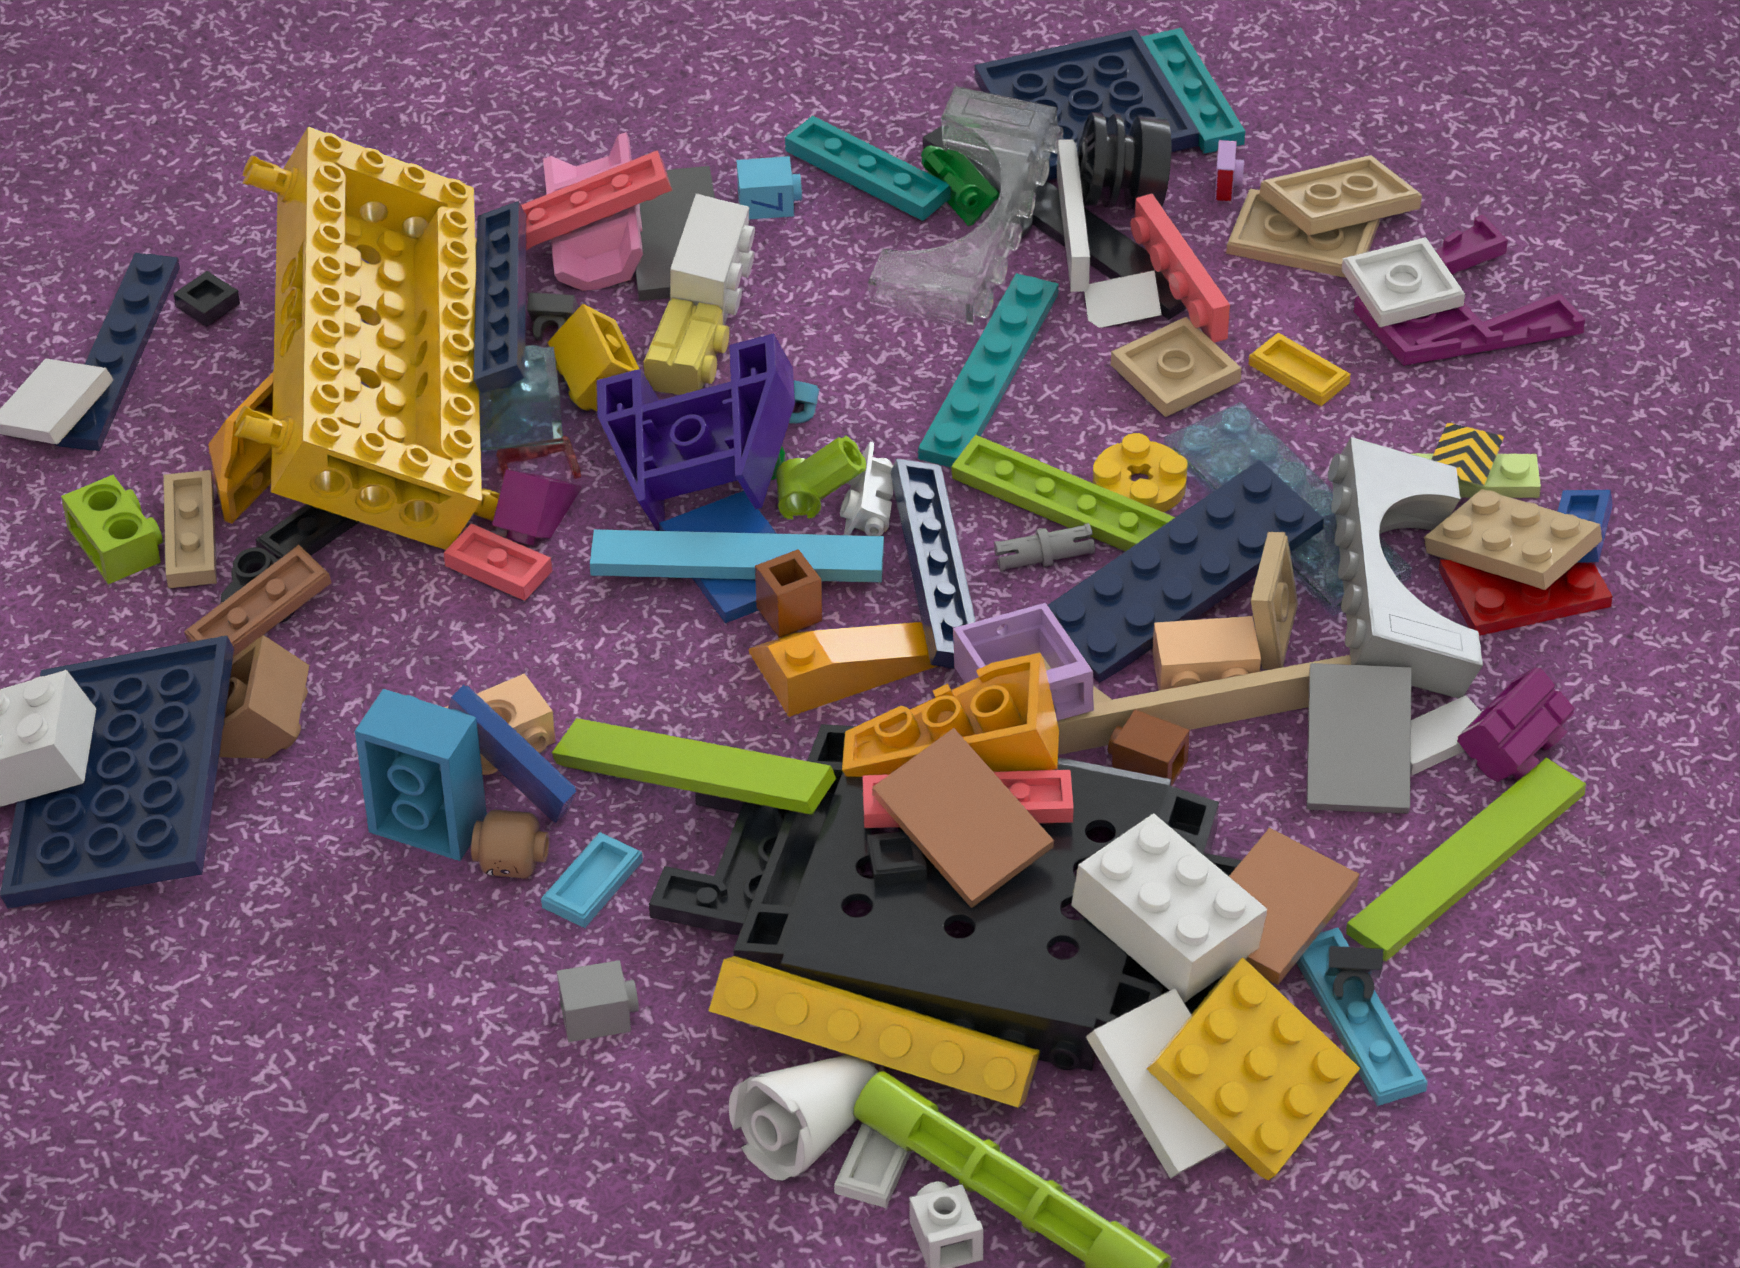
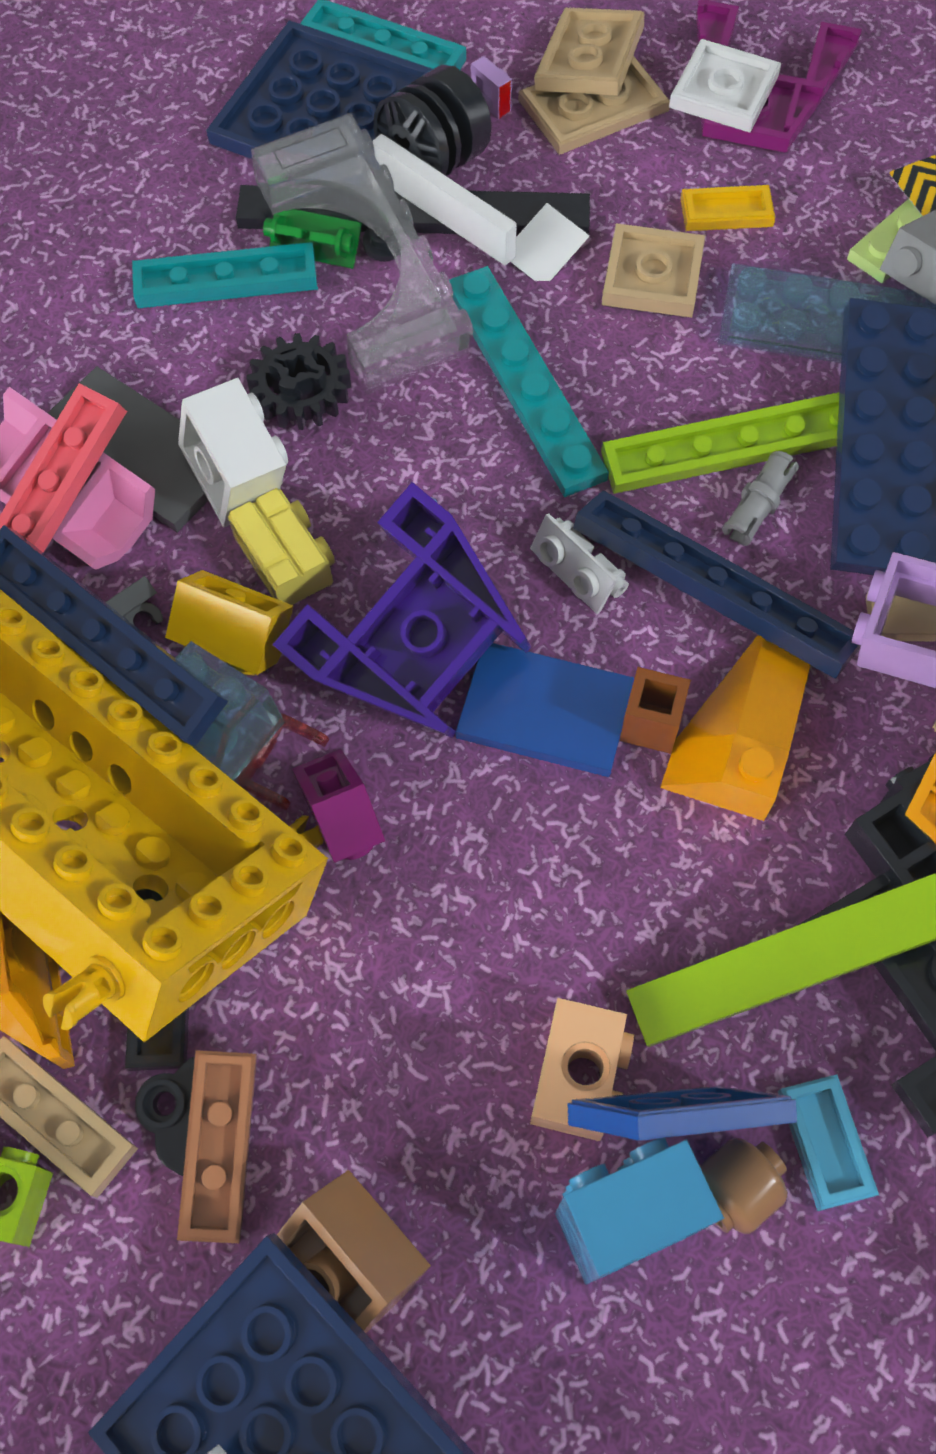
camera: 45 degrees left, 20 degrees up
(498, 562) = (372, 891): coral plate -> none
(731, 554) = (559, 713): medium azure tile -> none
(768, 187) = (170, 351): medium azure brick -> none
(807, 481) = (535, 588): lime piece -> none
(826, 263) = (300, 379): none -> black gear
(1141, 456) = (744, 358): yellow plate -> none
(1181, 268) = (573, 184): coral plate -> none

